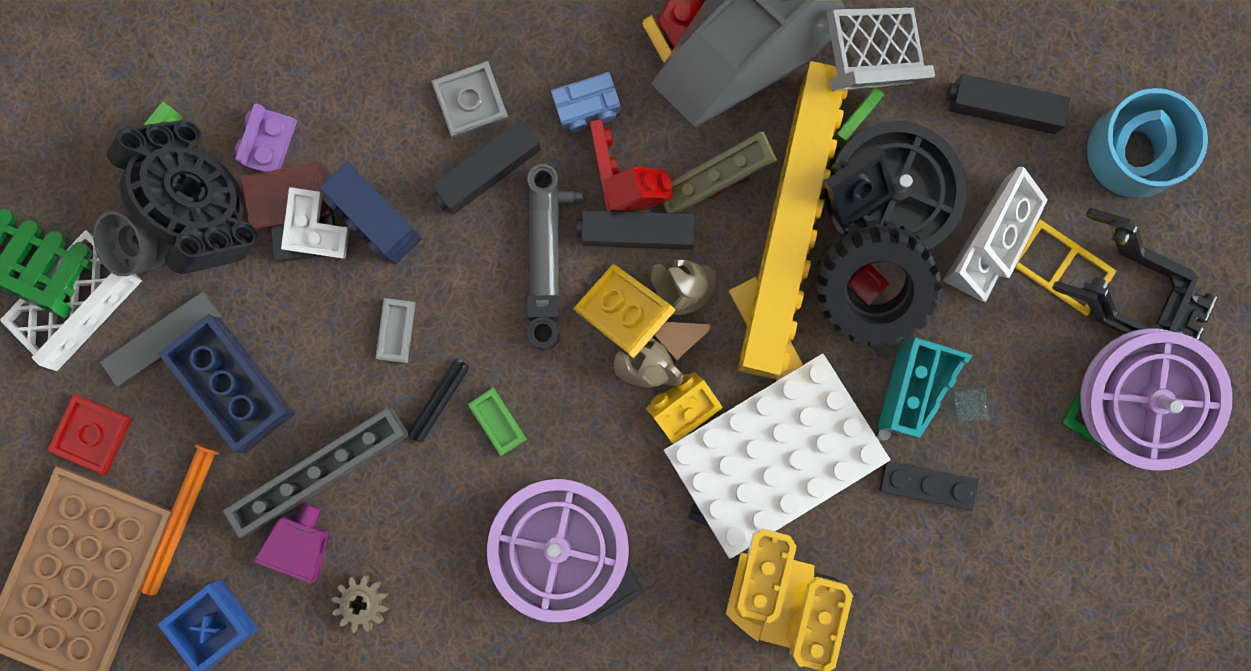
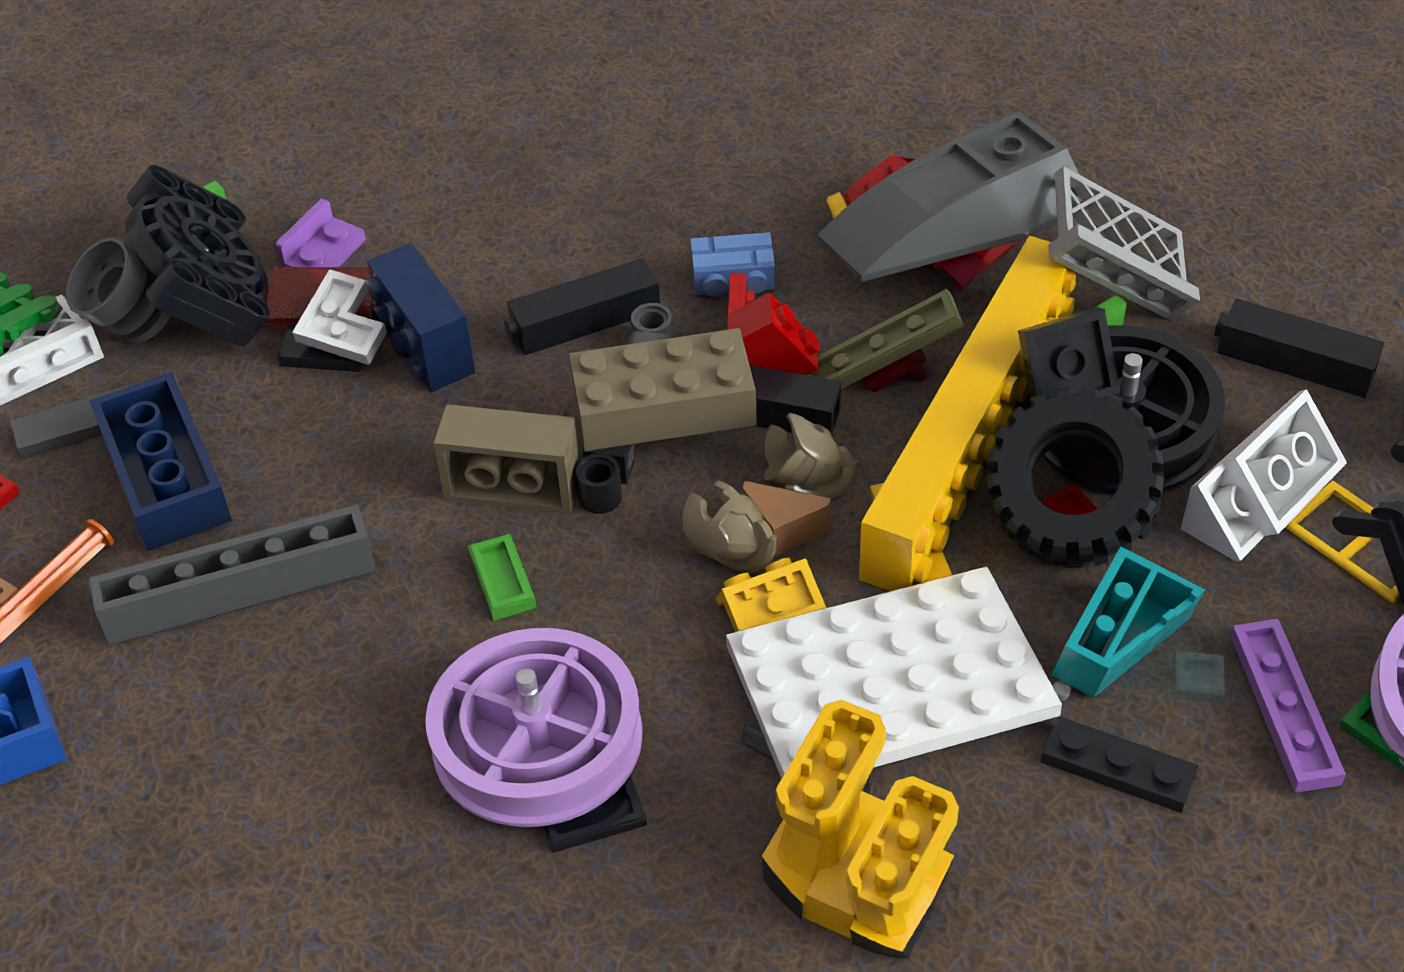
camera: 15 degrees right, 35 degrees down
(296, 546) = (165, 660): magenta torso -> none
(370, 596) = (224, 746): dark tan gear -> none
(395, 330) = (401, 456): light grey tile -> none
(438, 400) = (429, 537): black axle -> none
(469, 99) = (584, 246): light grey tile -> none
(476, 334) = (508, 458): none -> dark tan brick
(573, 261) = (663, 389): none -> dark tan brick
(624, 310) = (715, 462): yellow tile -> none
(1028, 420) = (1287, 706): none -> medium lavender plate

